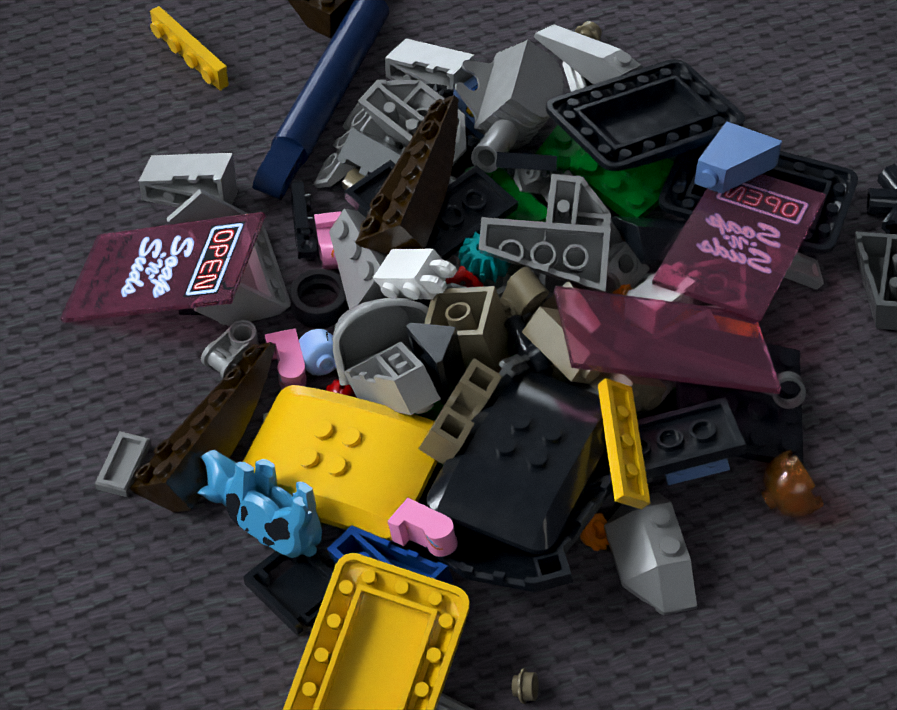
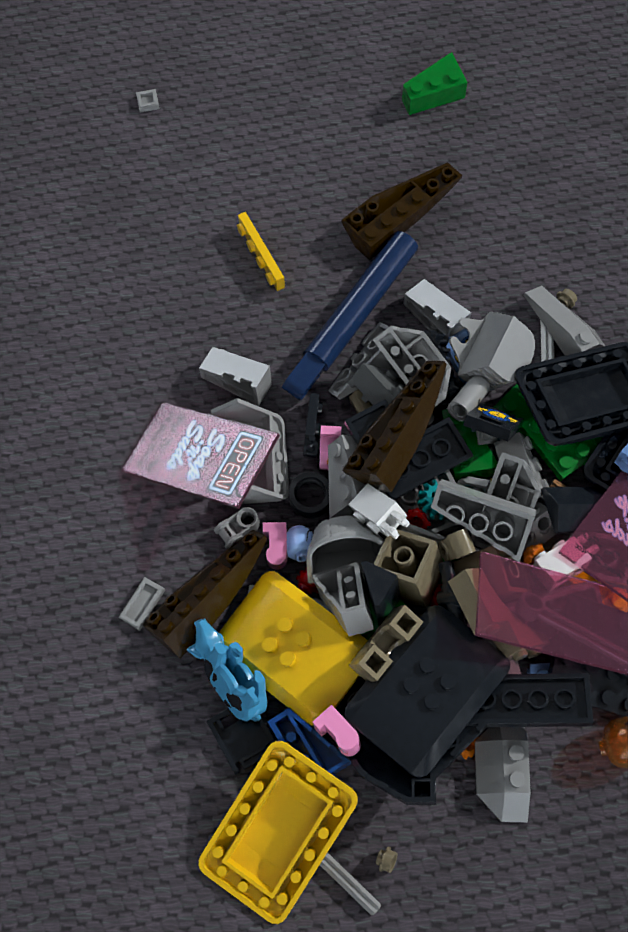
camera: 15 degrees right, 15 degrees up
(514, 365) = (435, 611): dark grey axle -> none
(623, 444) = (500, 701): yellow plate -> none

